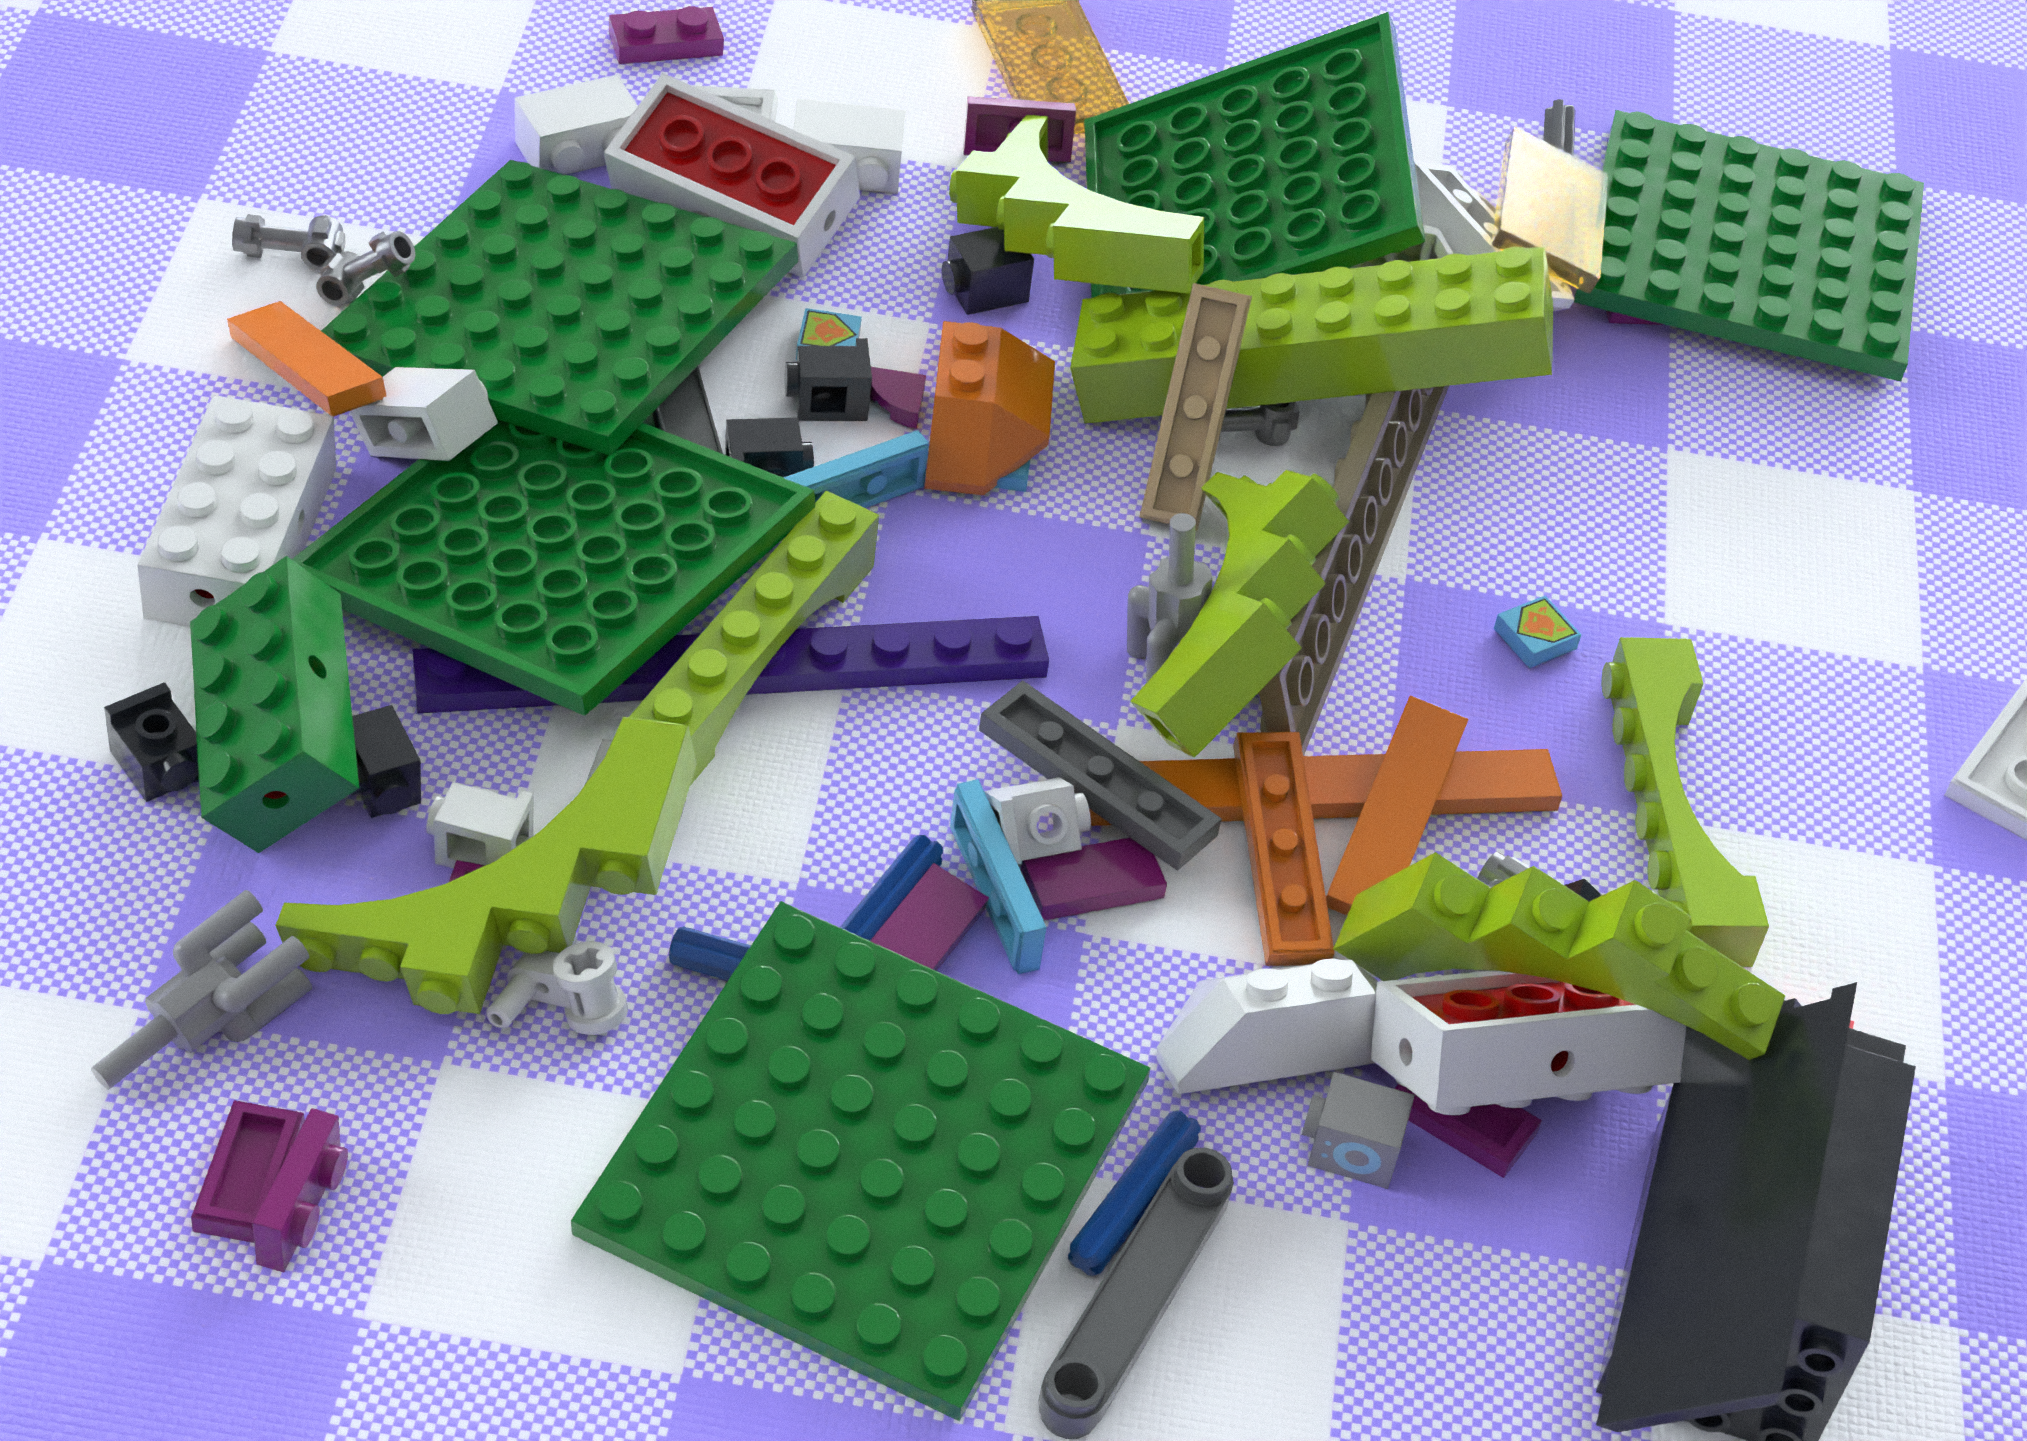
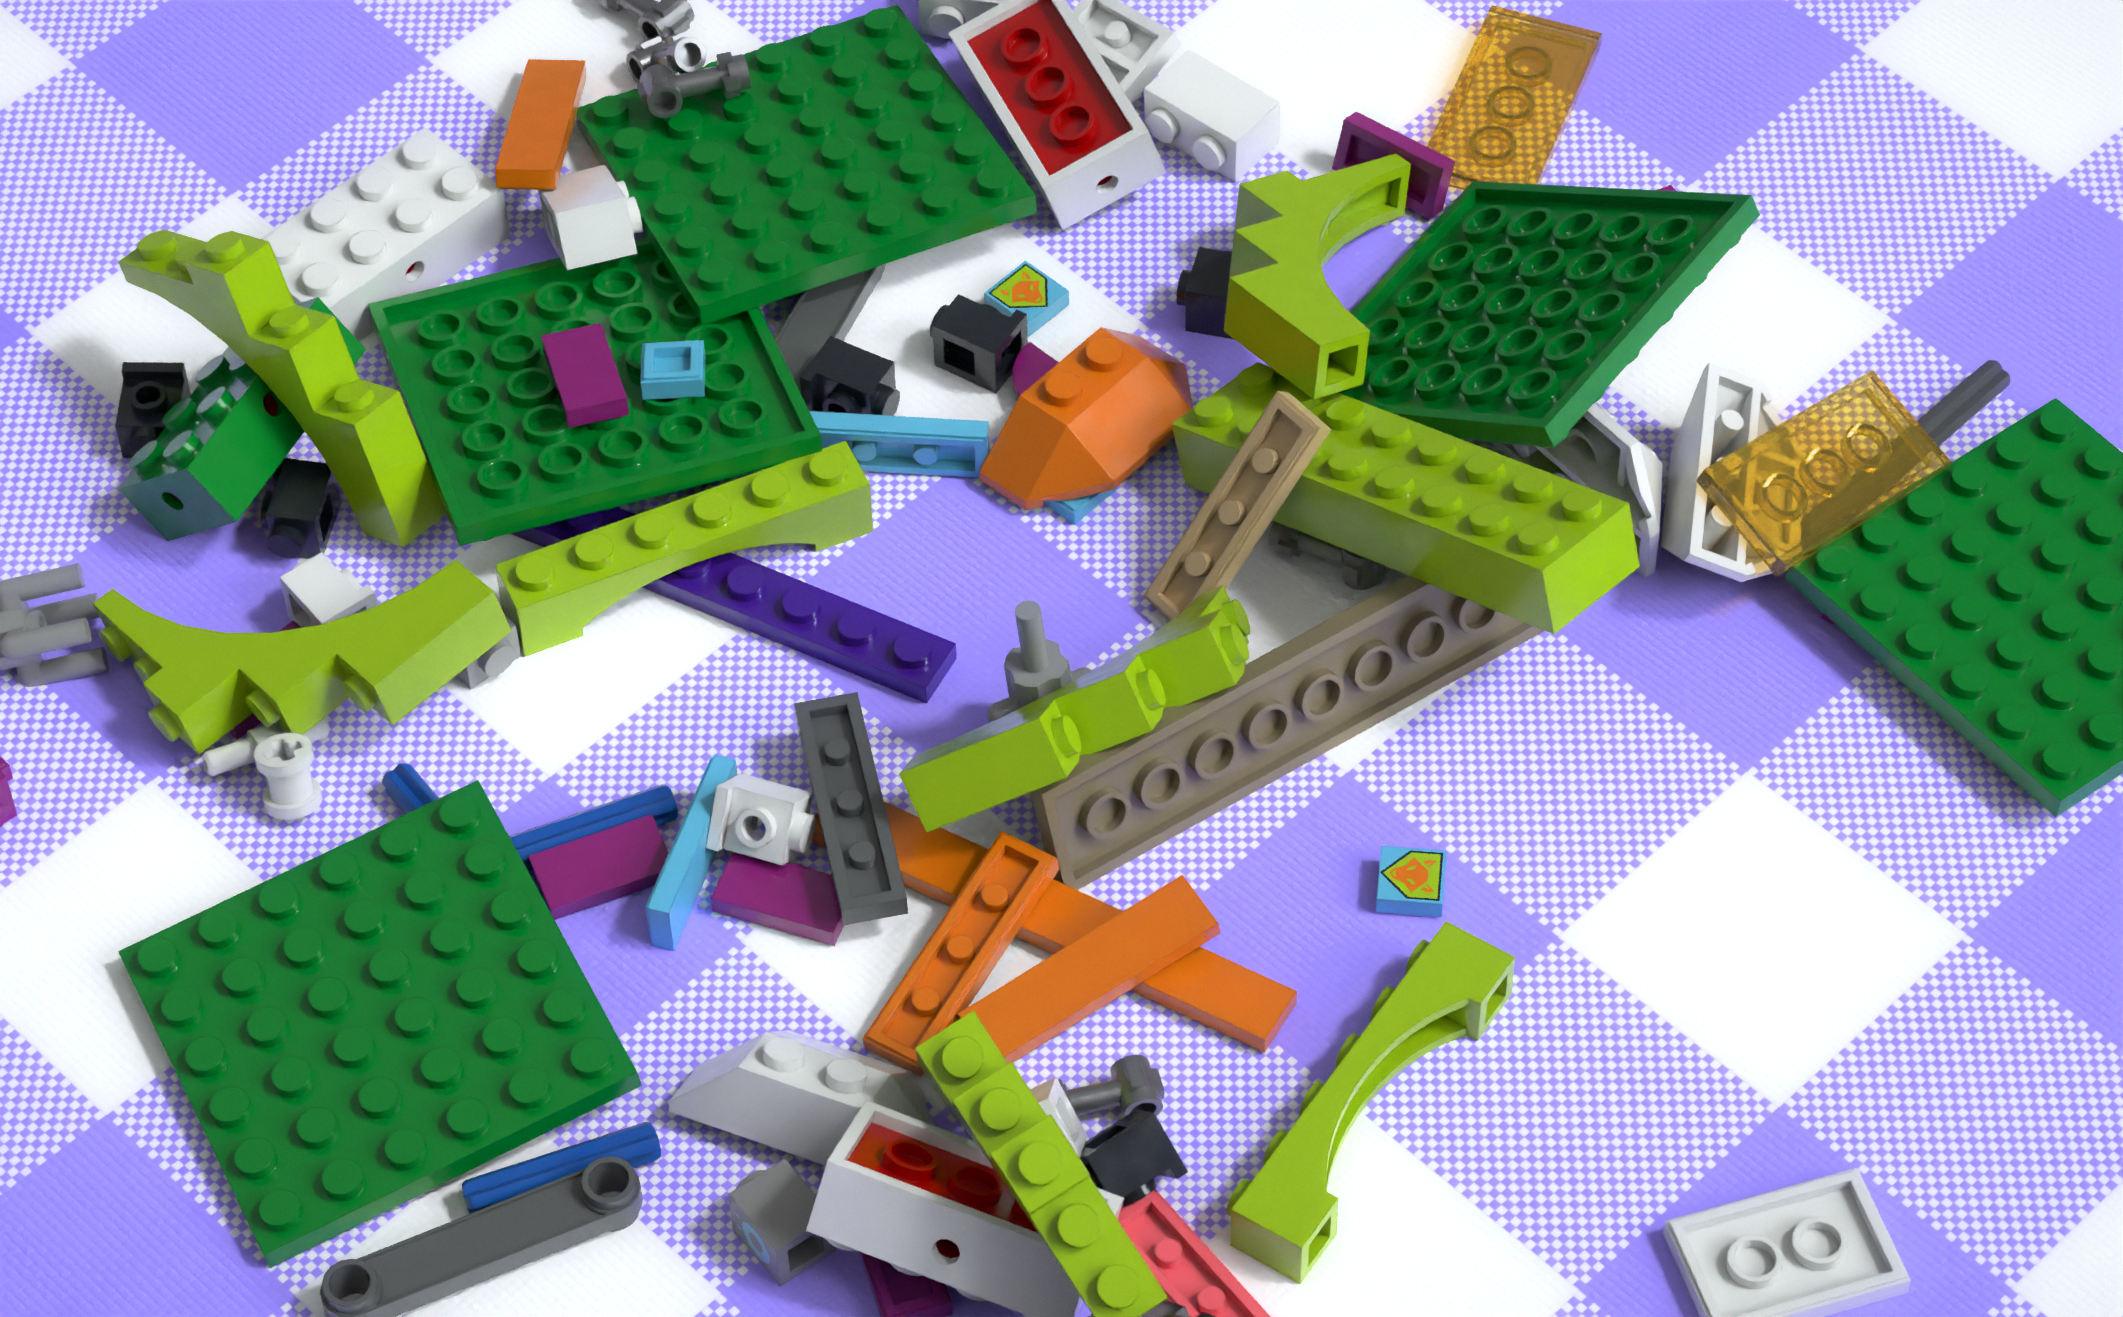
camera: 45 degrees right, 5 degrees up
(331, 603) = (302, 357): none -> lime arch
(407, 287) = (664, 92): none -> flat silver bar
(563, 530) = (585, 375): none -> magenta tile
(634, 494) = (673, 369): none -> medium azure tile

